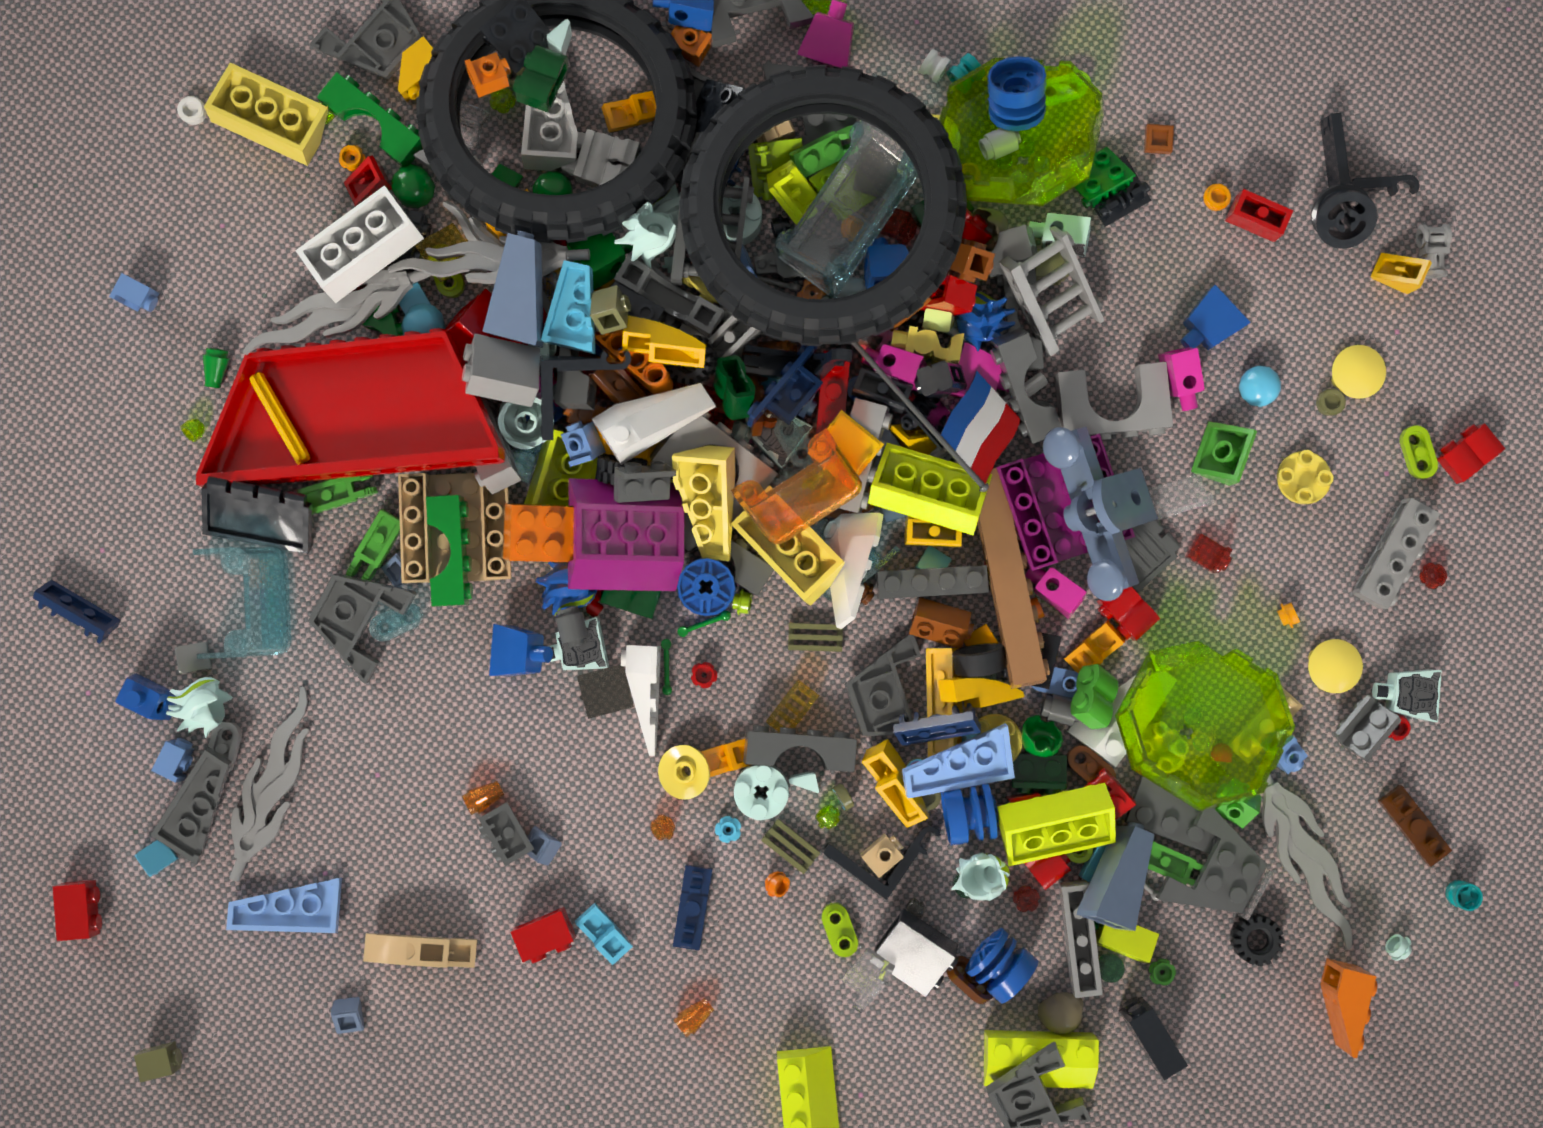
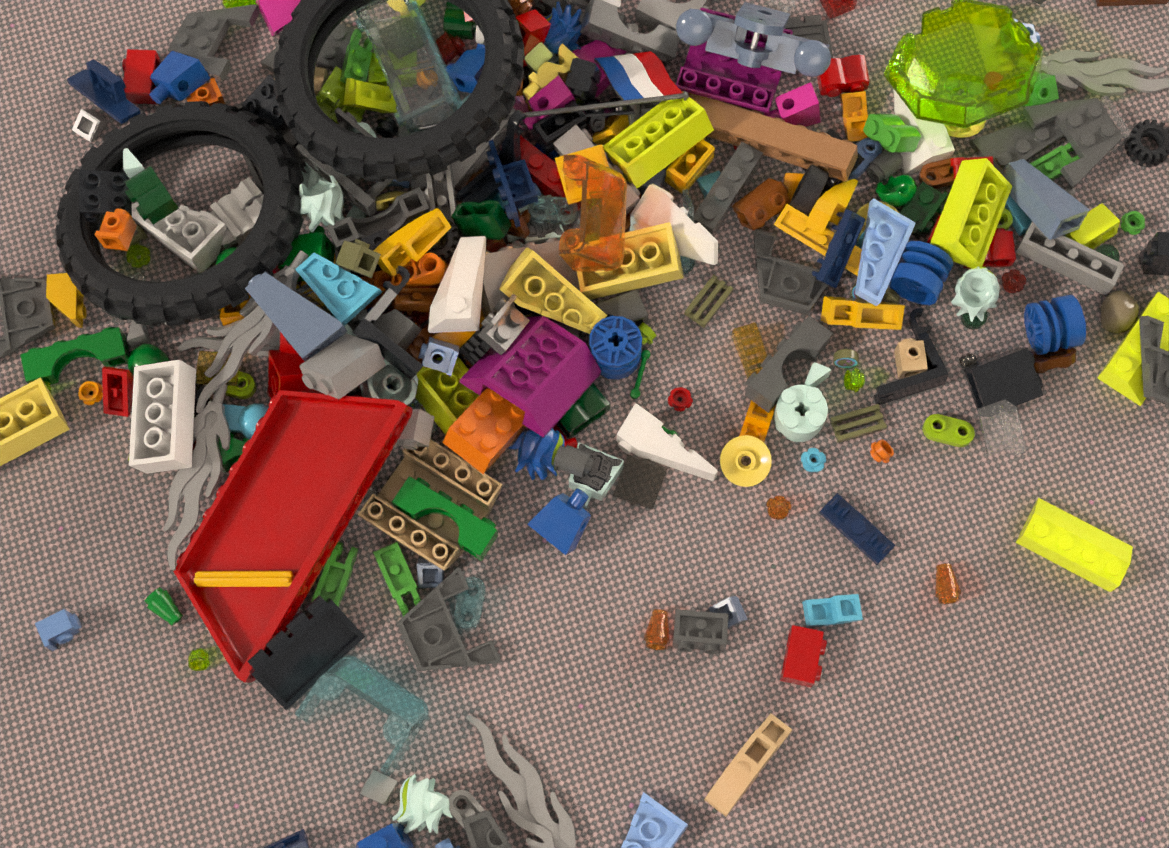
camera: 60 degrees left, 15 degrees down
(630, 112) = (222, 173): light orange slope -> none

